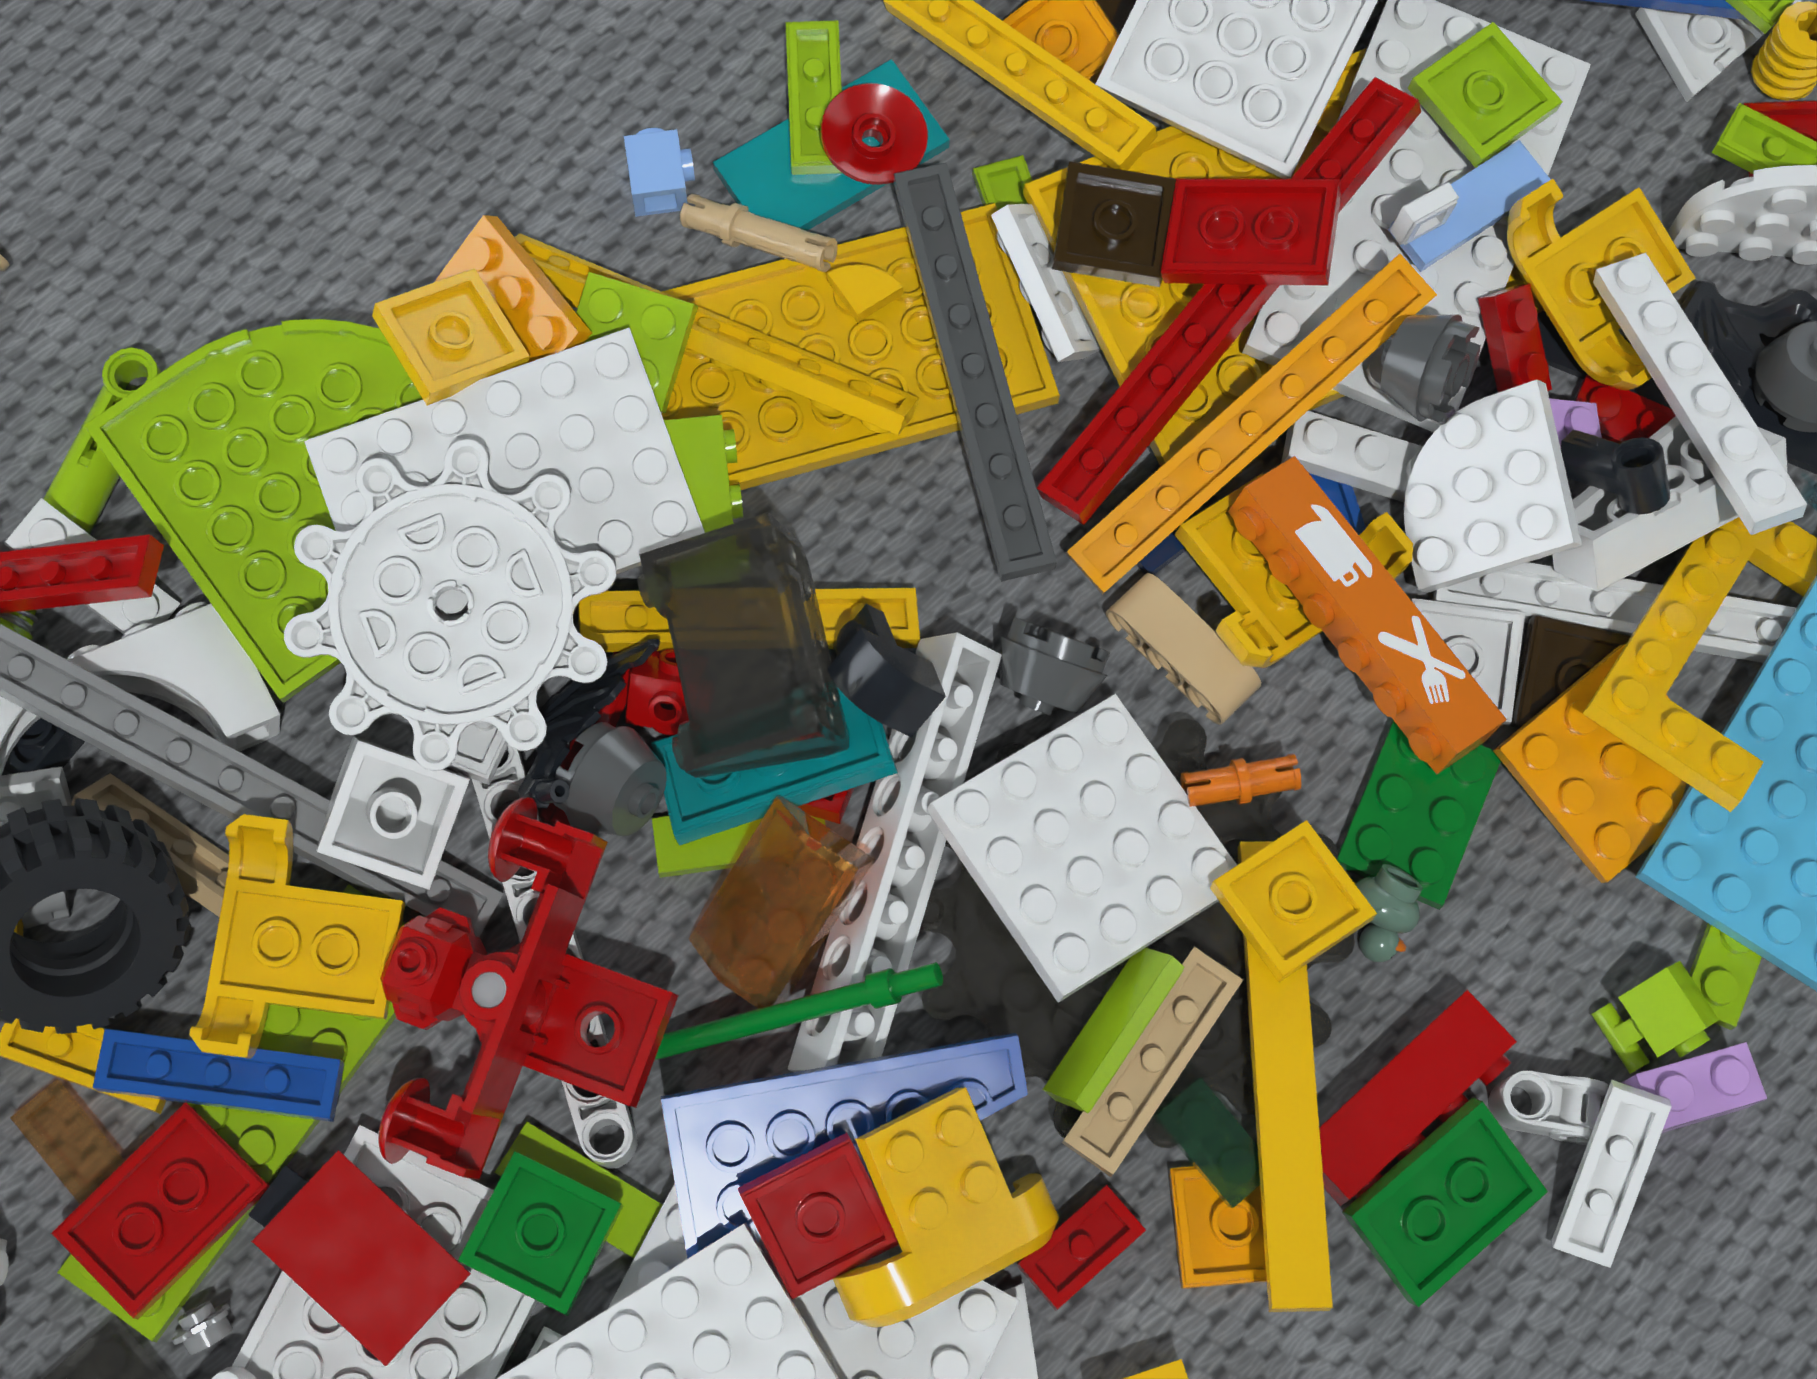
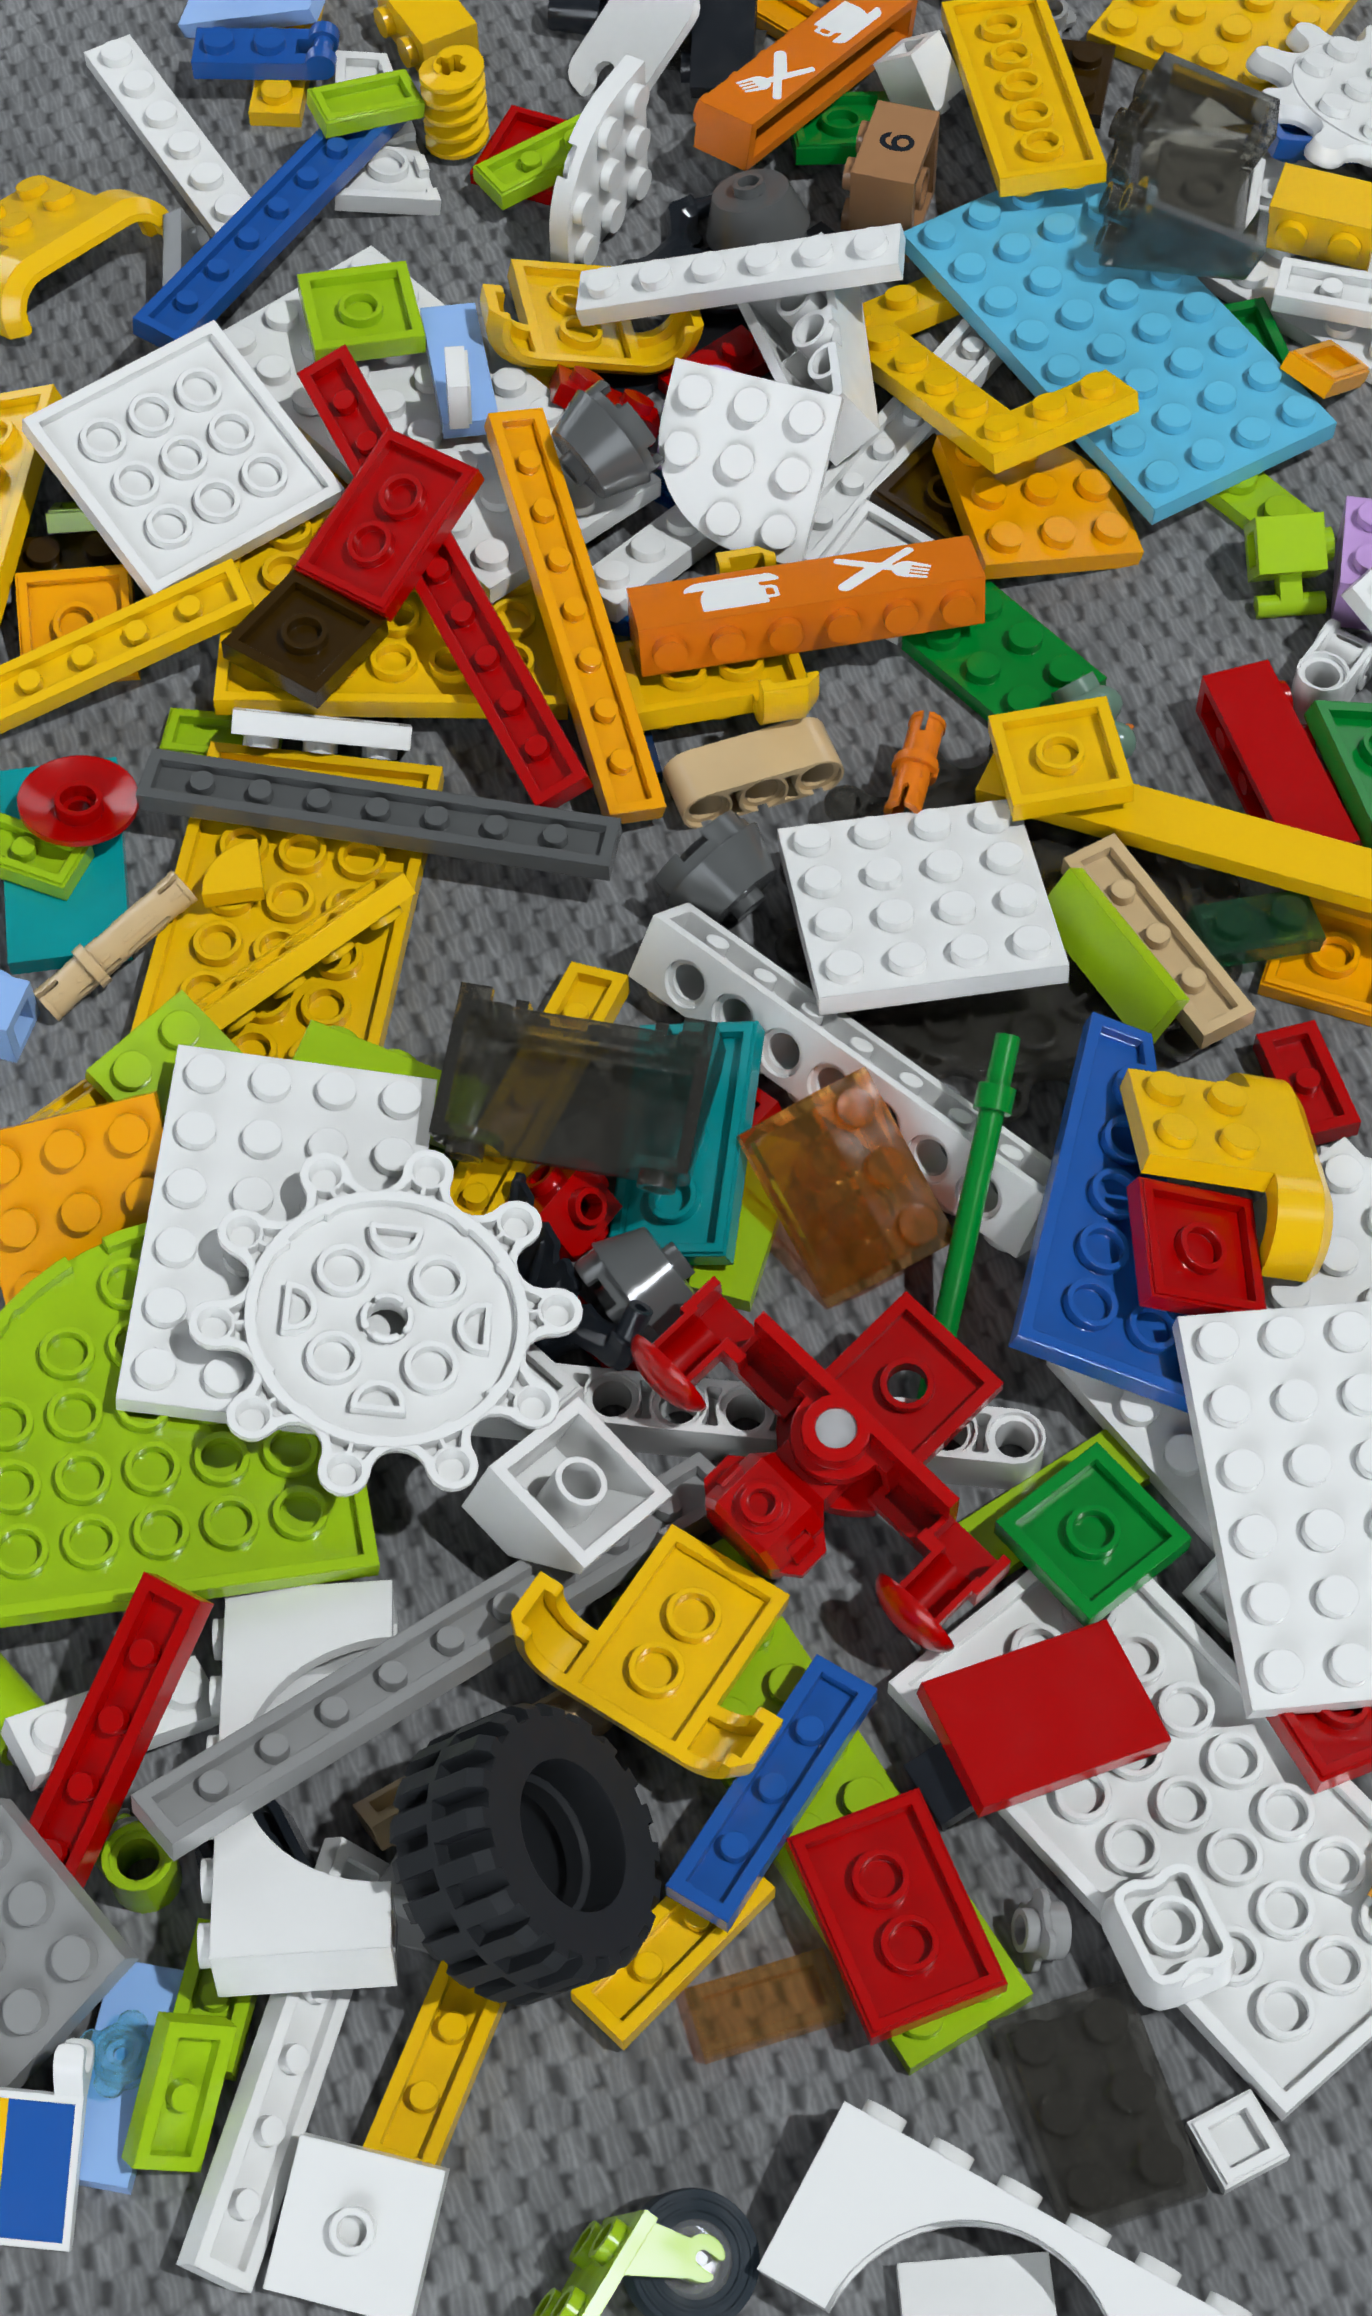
camera: 60 degrees left, 15 degrees down
(449, 335) = (82, 1213): yellow plate -> none
(883, 677) = (661, 990): black brick -> none
(1629, 469) = (795, 339): black piece -> none

